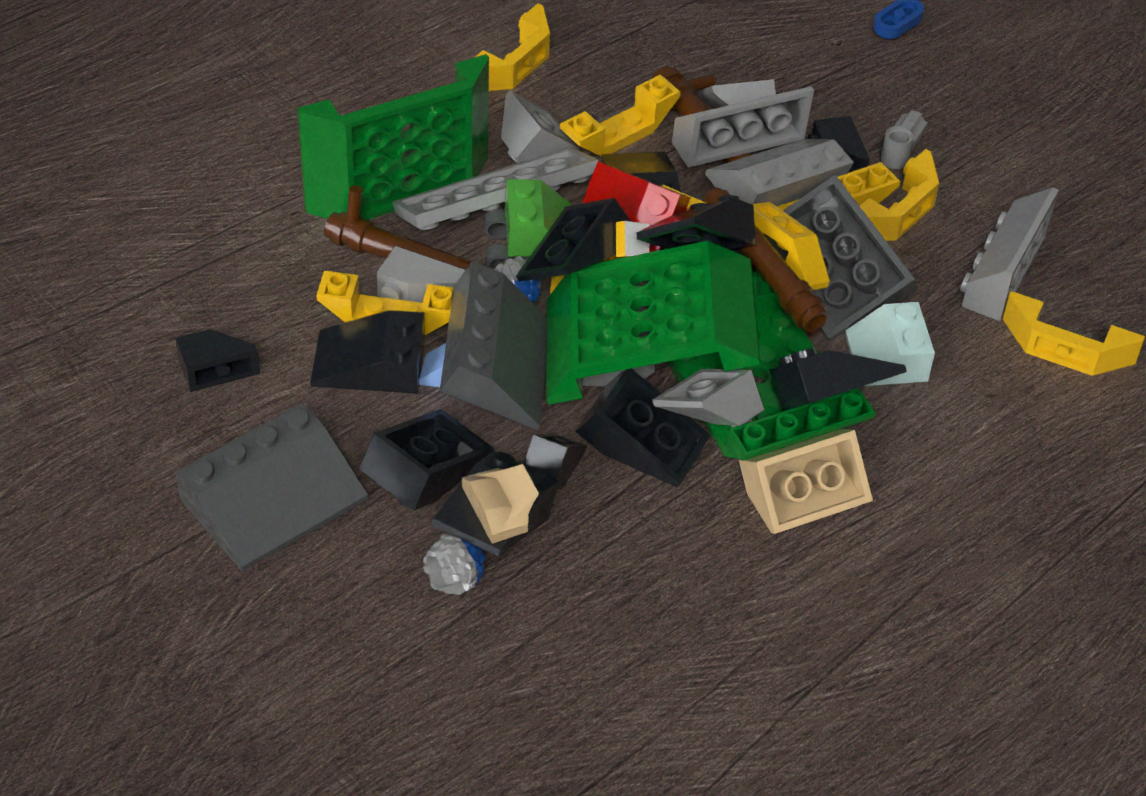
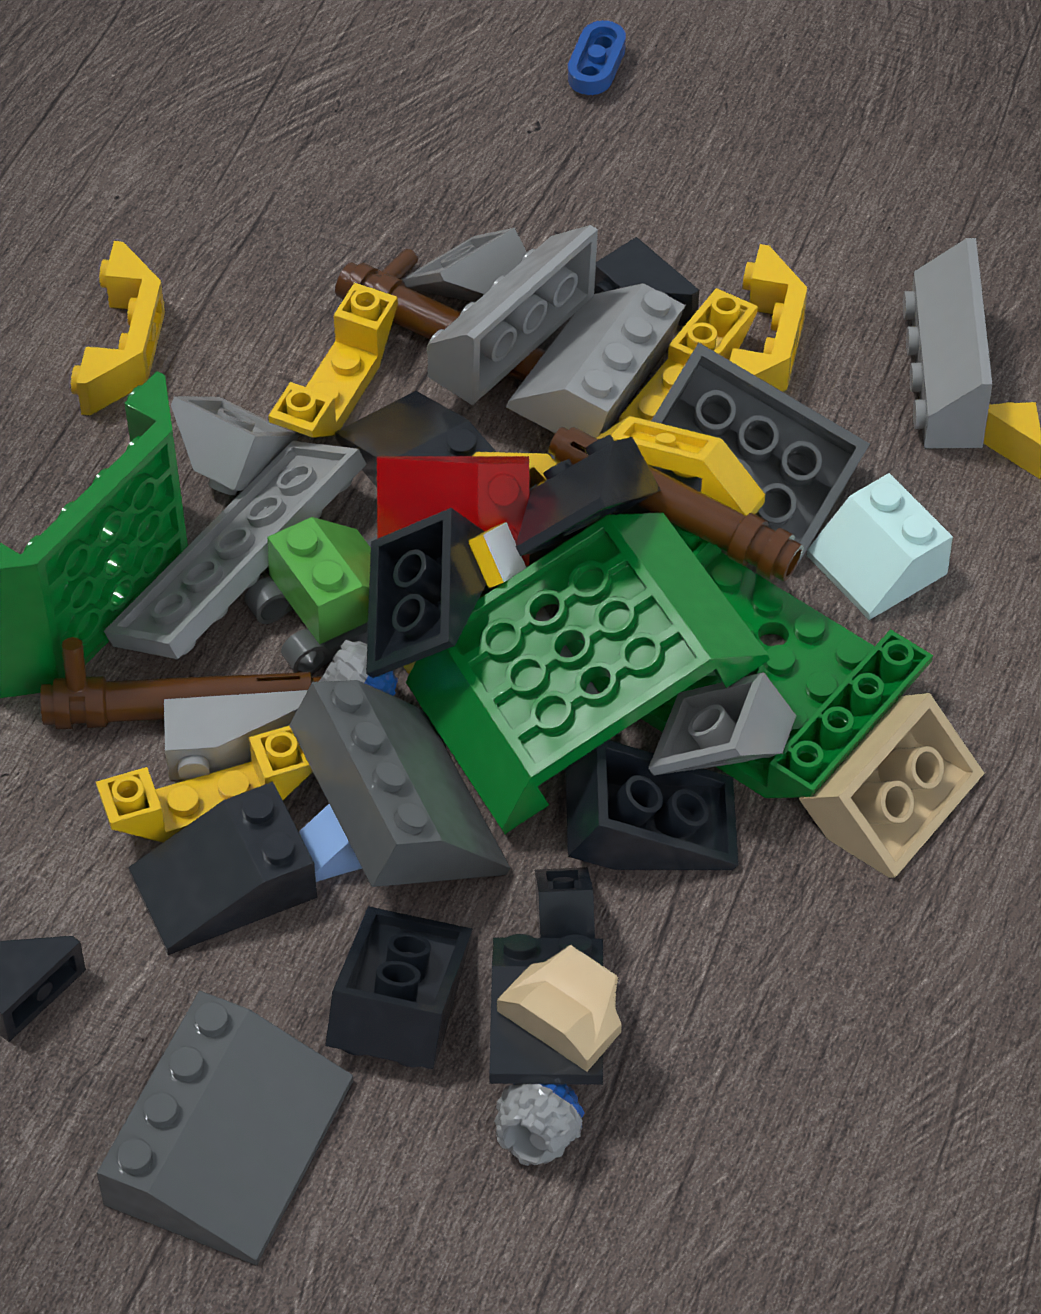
camera: 25 degrees left, 5 degrees up
(813, 376) = (852, 644): black slope -> none
(902, 139) = (714, 240): light grey piece -> none

